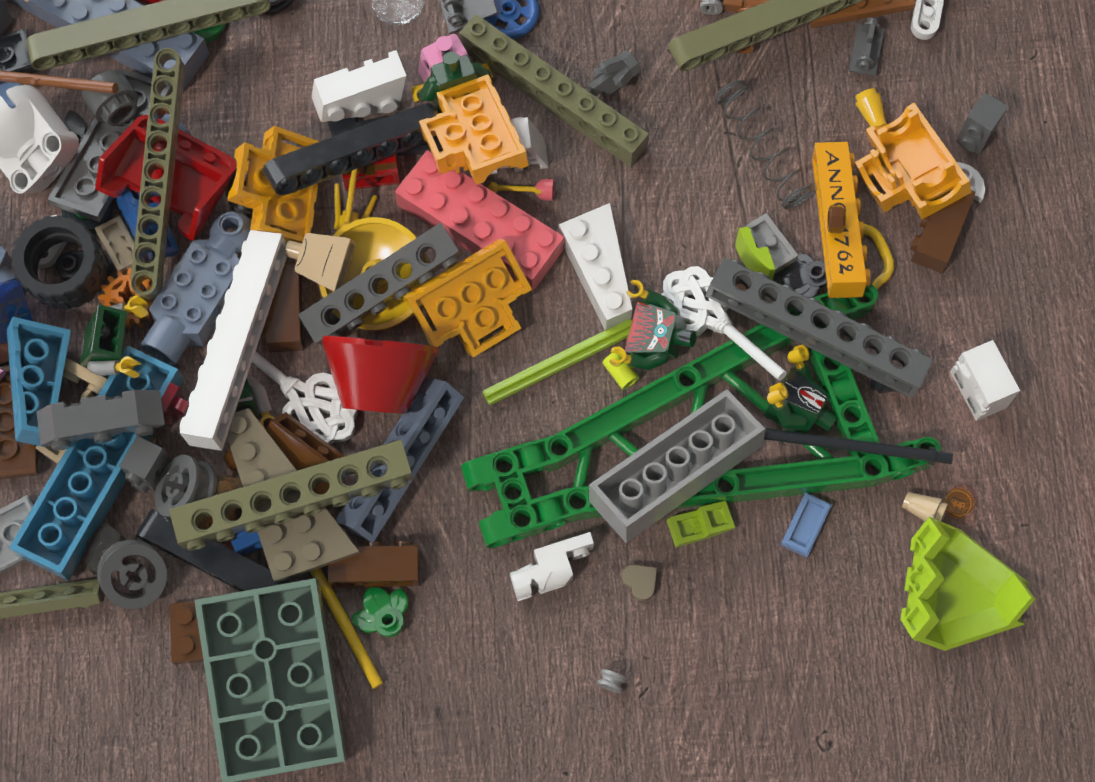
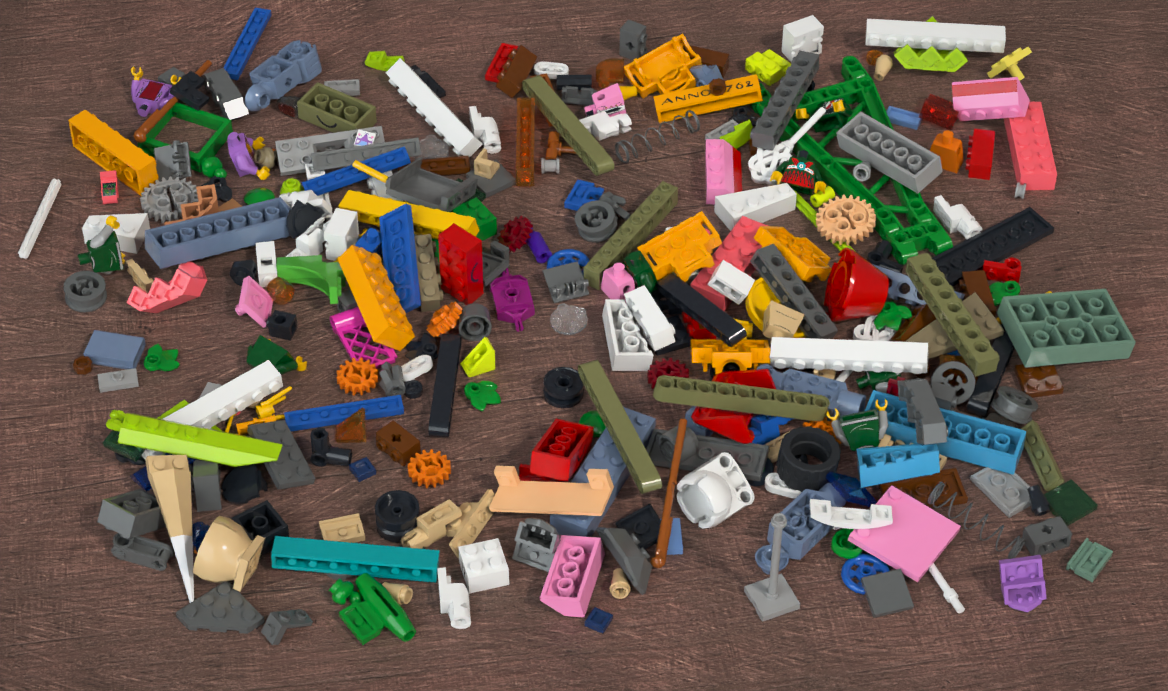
camera: 95 degrees left, 25 degrees down
(267, 105) = (666, 368): none -> dark red gear
(330, 53) = (625, 344): none -> white wedge
(334, 425) = (891, 316): none -> green plate
(406, 195) = (731, 282): none -> white brick
(427, 601) = (1003, 272): none -> red plate
(455, 439) = (880, 255): none -> black piece
(483, 602) = (993, 244): none -> black plate
(559, 407) = (845, 220): none -> light nougat gear
(582, 44) = (592, 214): none -> dark grey wheel
(640, 581) = (955, 184): dark tan tile -> none
(645, 32) = (581, 193): none -> blue plate
(648, 424) = (862, 171): none -> light grey cone
(680, 230) = (721, 169): none -> bright pink slope
(698, 572) = (949, 150): none -> orange torso
(702, 631) = (980, 154): none -> red brick
(716, 716) = (1031, 149): none -> coral brick
(794, 73) = (604, 126): none -> white plate
(797, 655) = (989, 99): none -> bright pink slope
(811, 584) = (939, 112): none -> clear red bracket
(830, 70) = (607, 100): none -> bright pink torso
(894, 226) = (705, 74): none -> sand blue brick
(898, 42) = (579, 81): none -> black axle
(918, 88) = (609, 72): none -> clear orange brick
(918, 719) = (1010, 63): none -> light yellow plate
(929, 455) = (855, 57): black bar -> none
(934, 328) = (767, 66): none -> neon yellow plate
(983, 598) = (939, 35): none -> white brick

